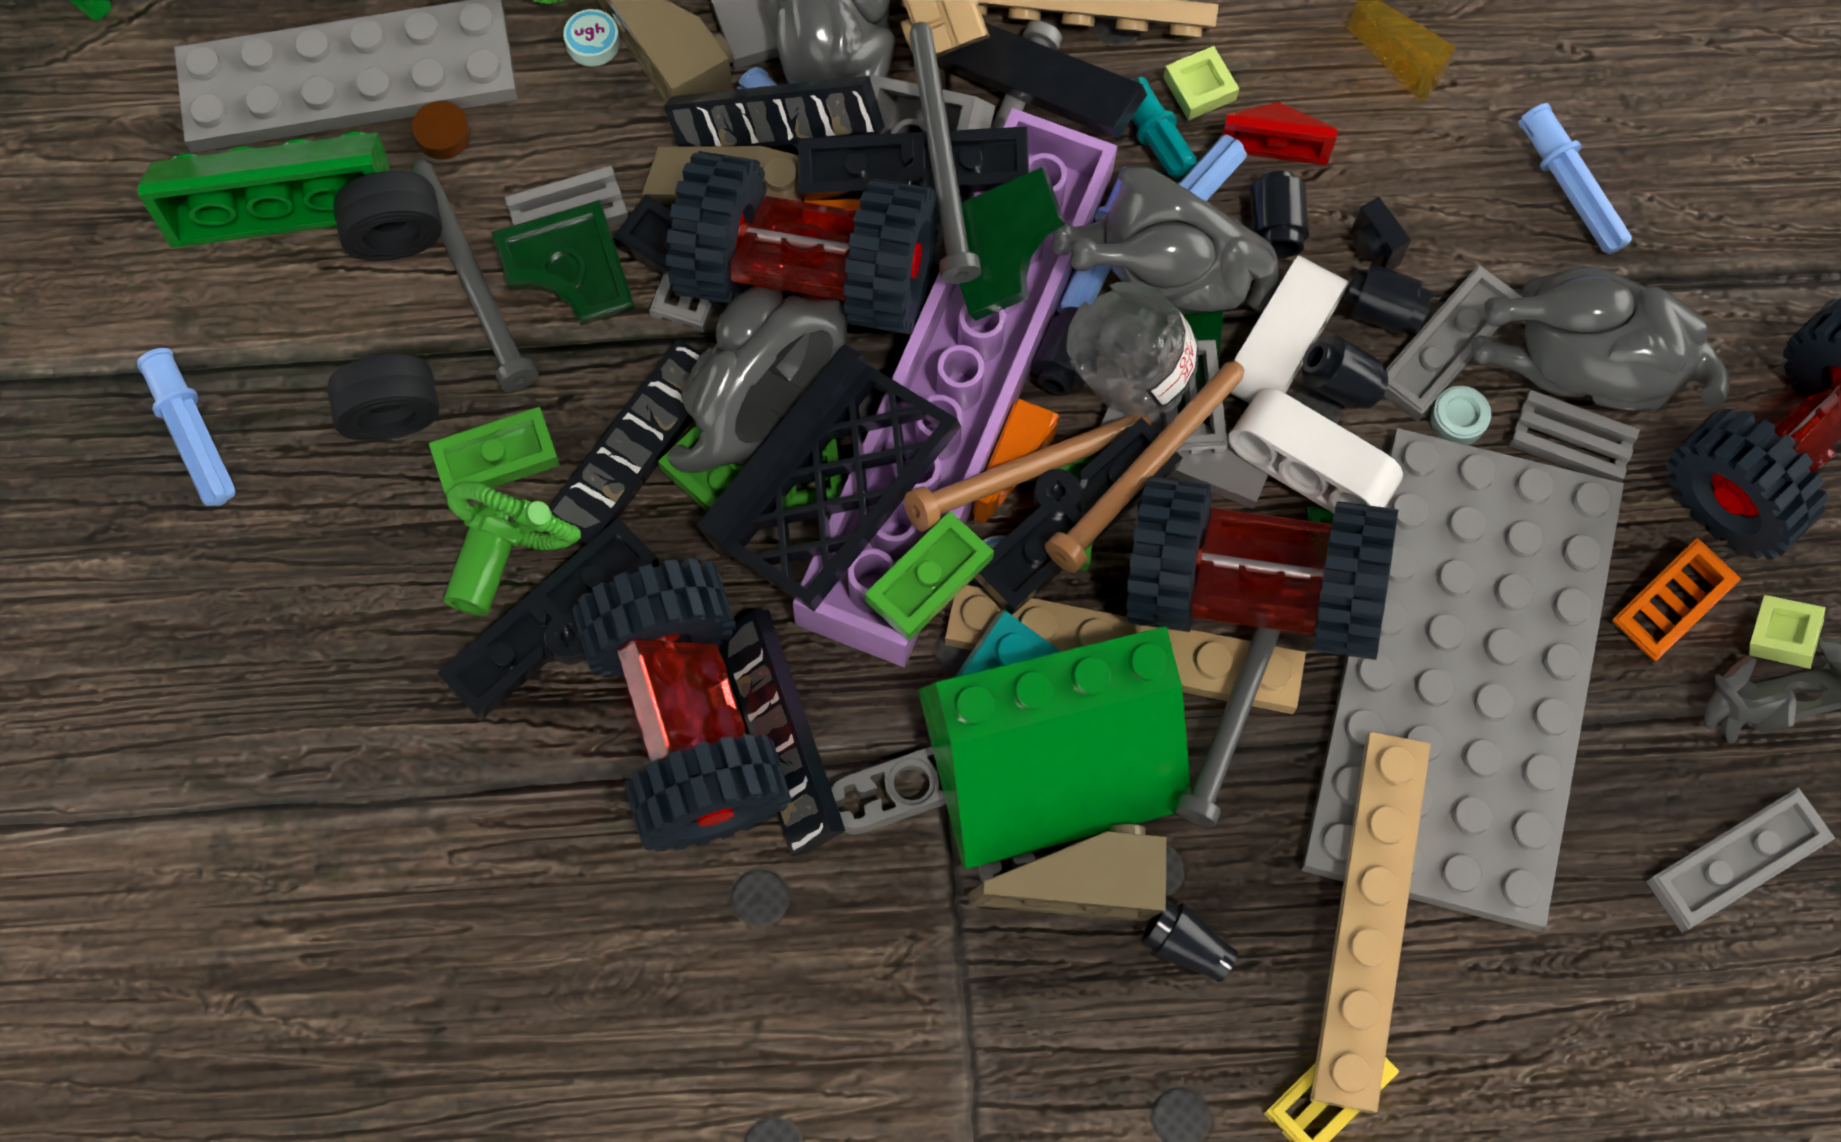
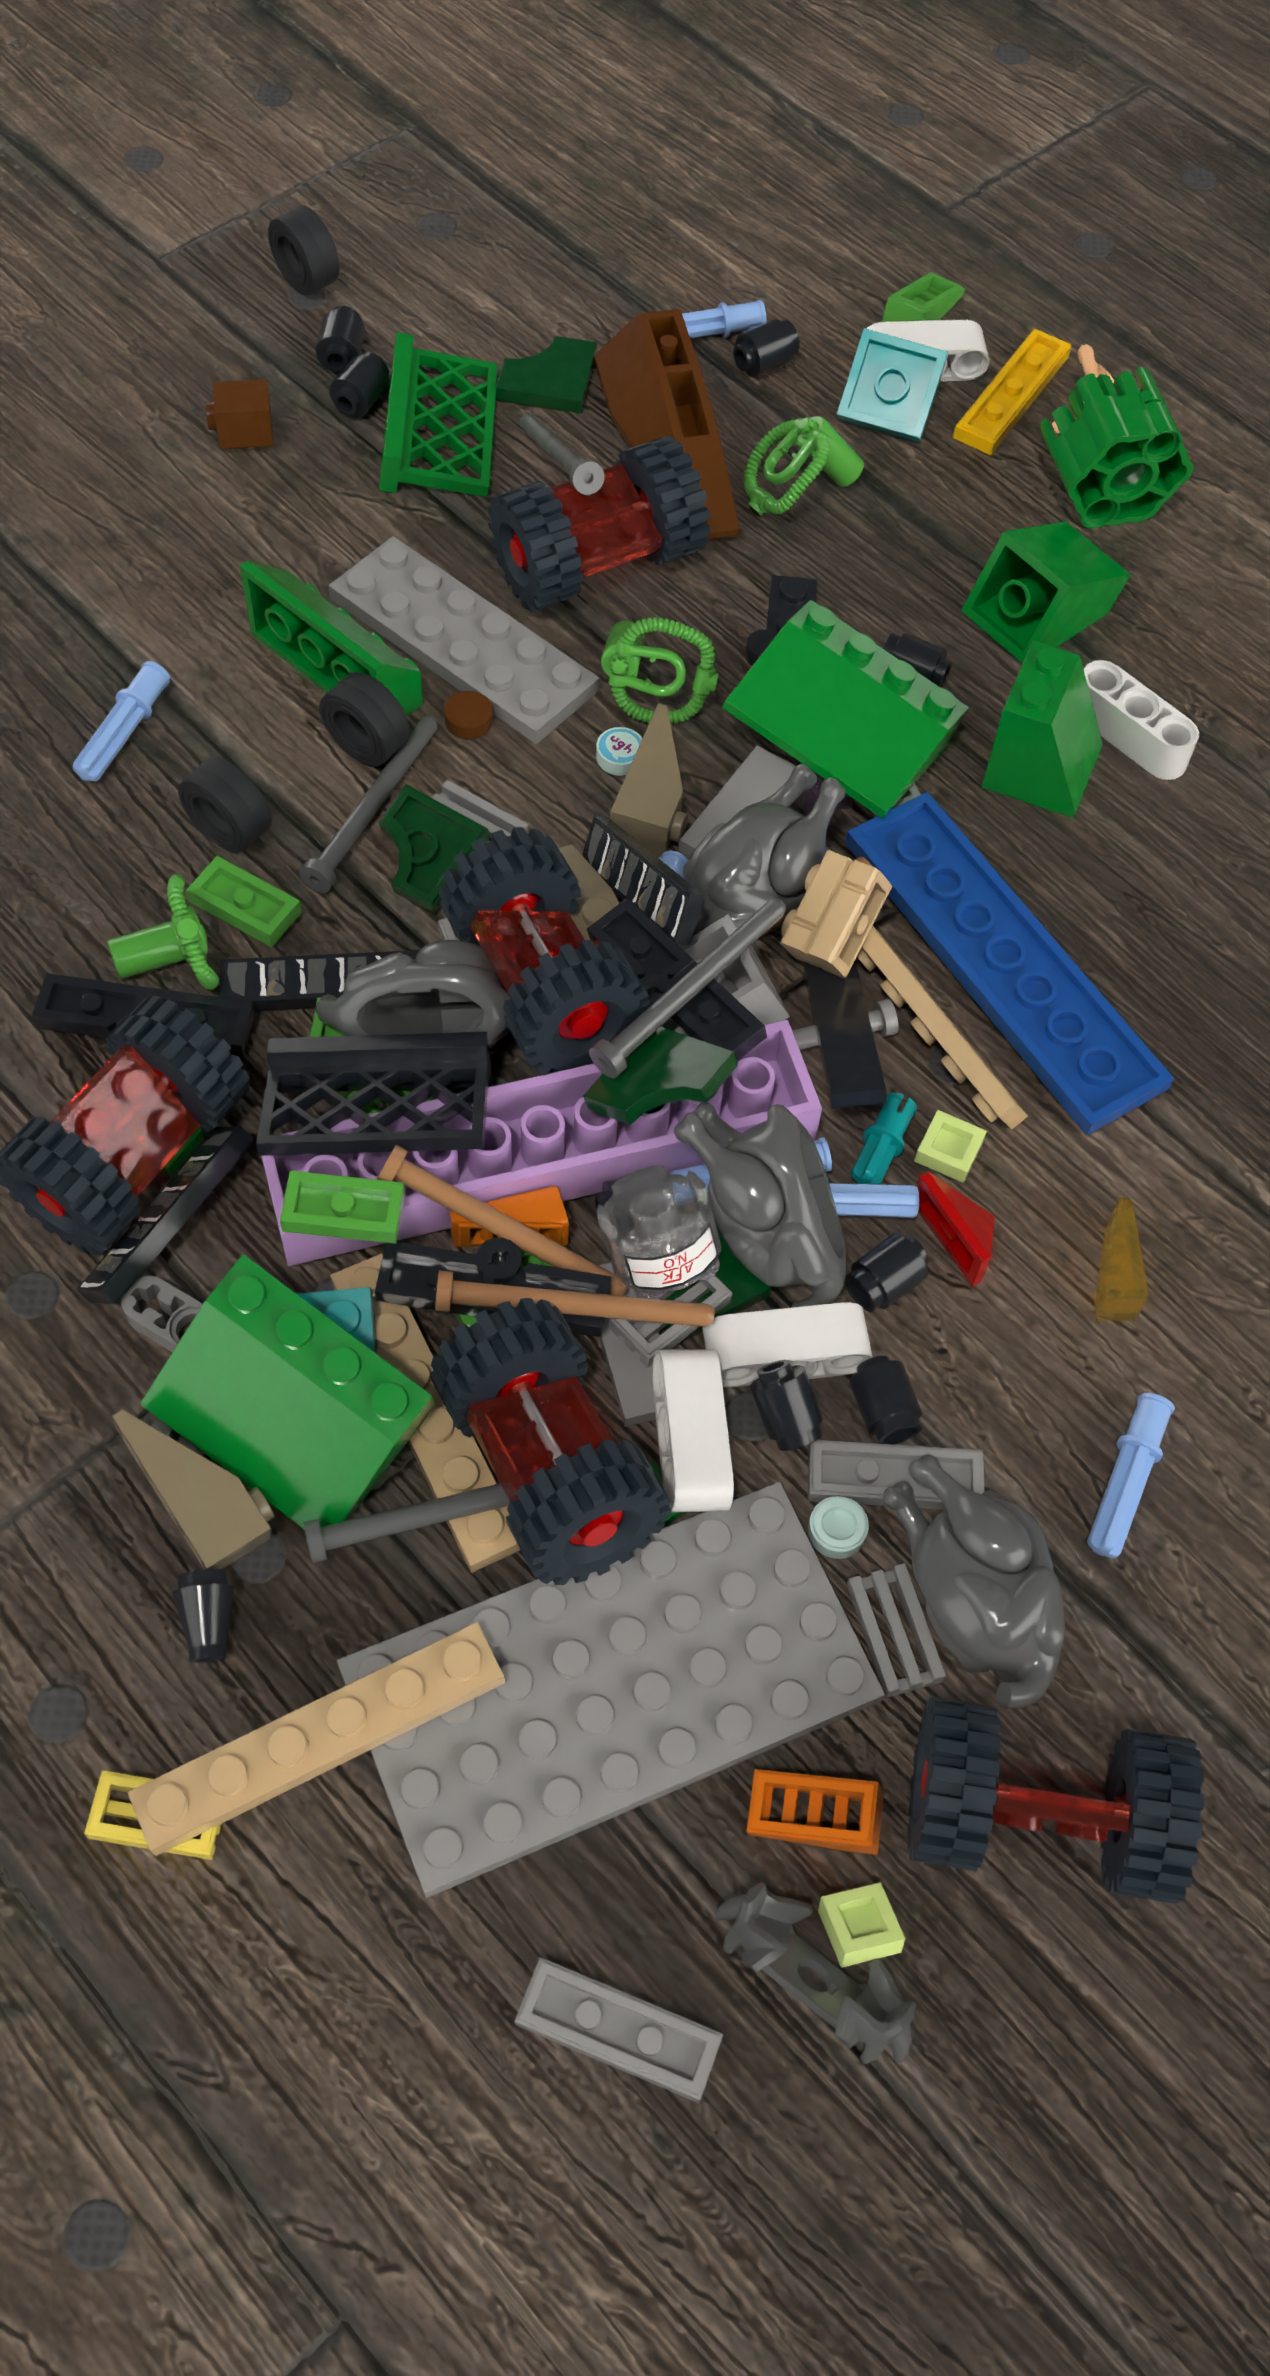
camera: 50 degrees right, 10 degrees down
(1379, 235) = (933, 1355): black plate -> none

